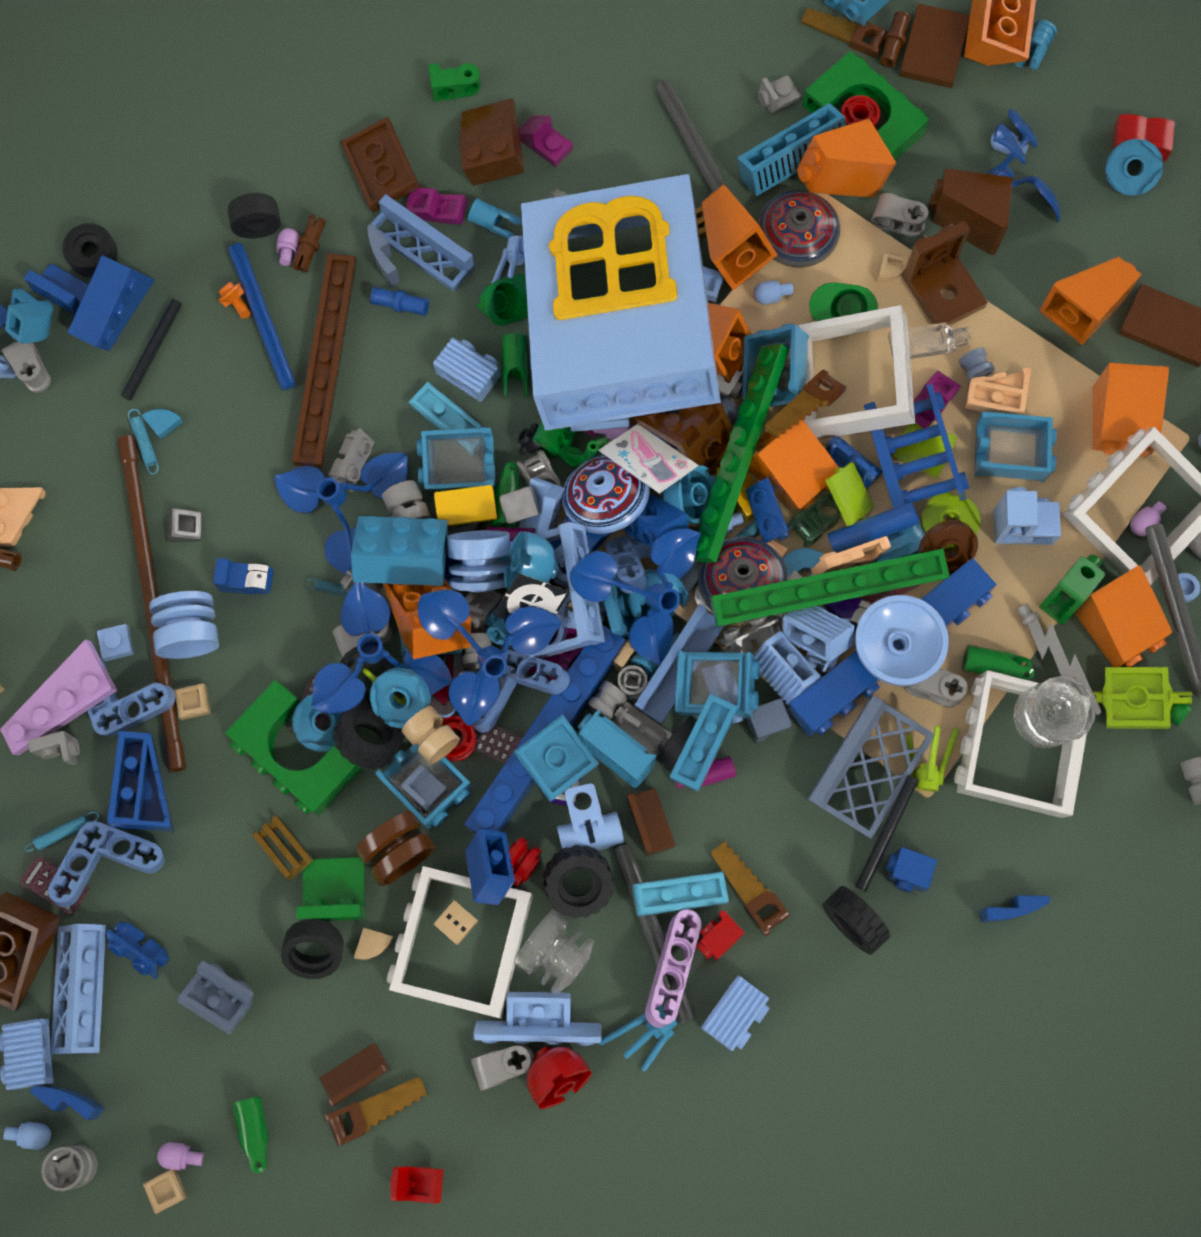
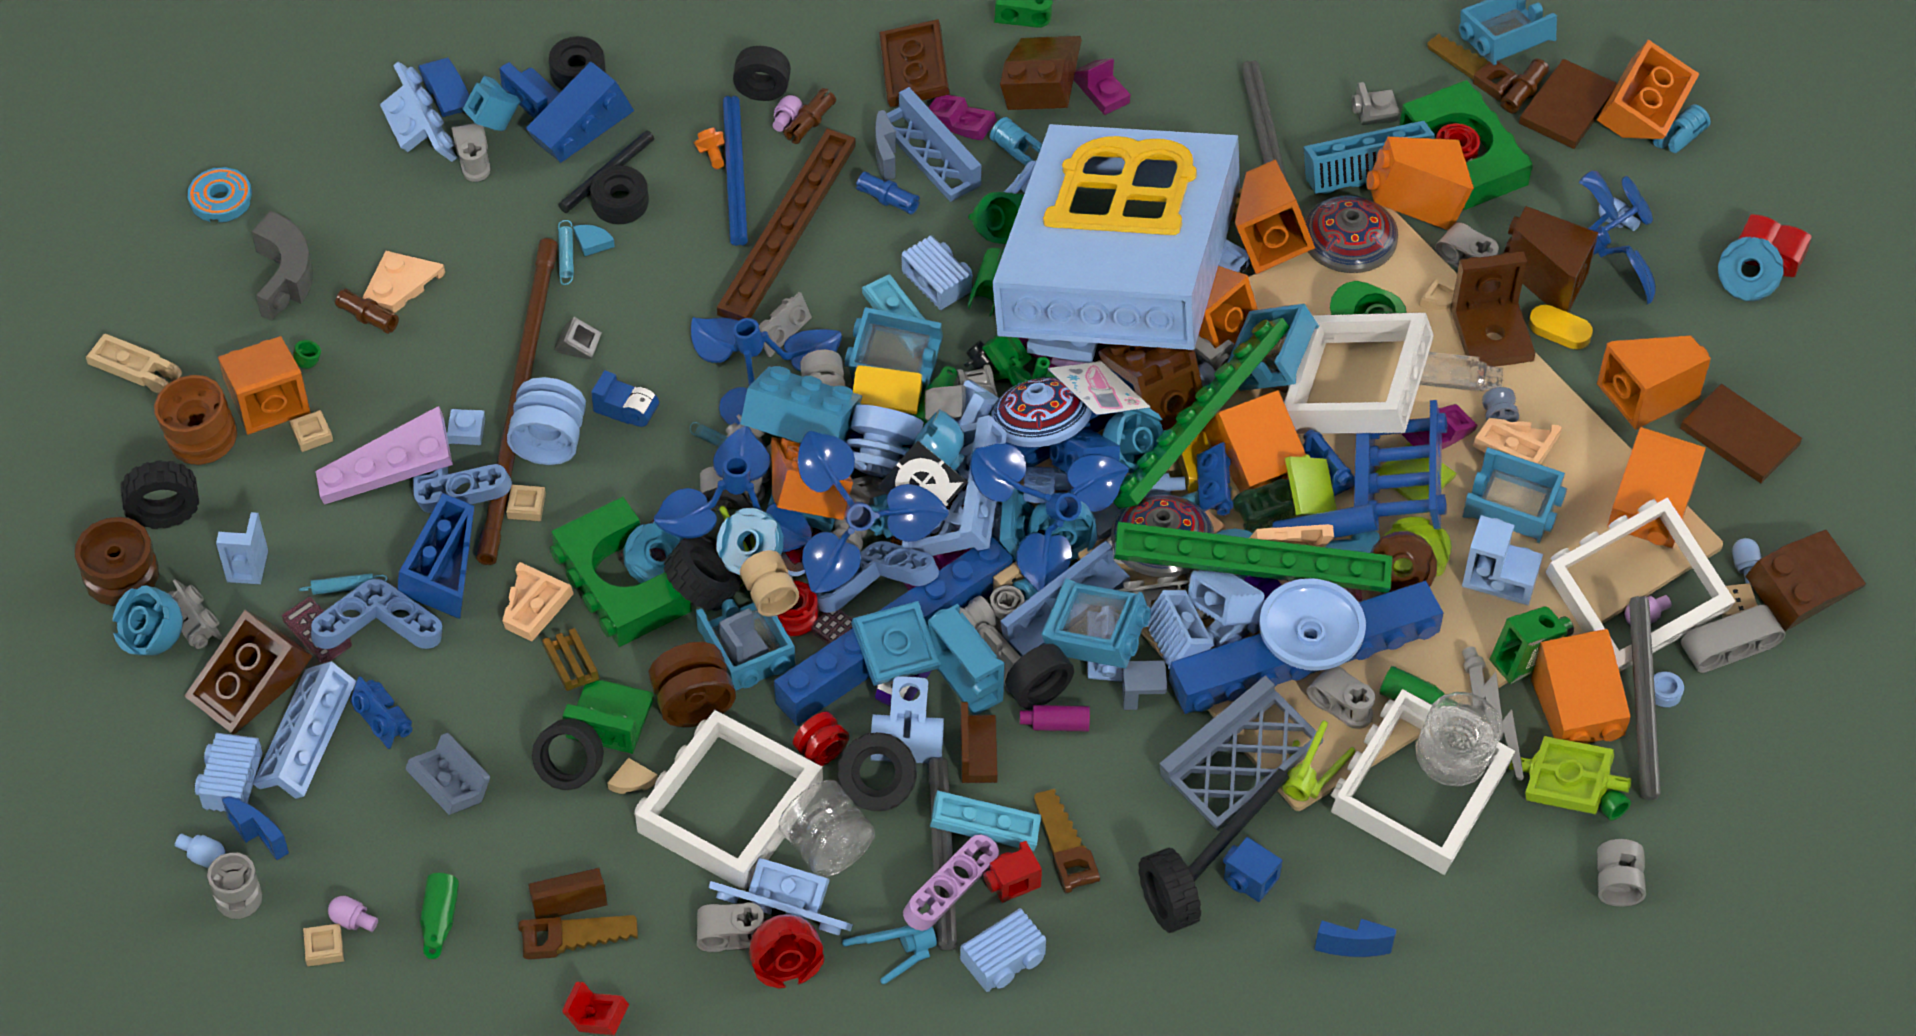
camera: 15 degrees right, 20 degrees down
(51, 745) = (367, 498): light grey bracket -> none
(167, 356) = (624, 209): none -> black tyre
(232, 800) = (534, 601): none -> light nougat wing
(456, 922) = (730, 768): tan tile -> none
(489, 866) = (786, 720): blue brick -> none
(704, 742) = (1059, 666): dark azure piece -> none
(771, 291) = (1297, 283): light blue cylinder -> none
(805, 402) = (1309, 374): piece -> none
(995, 266) = (1560, 327): none -> yellow tile

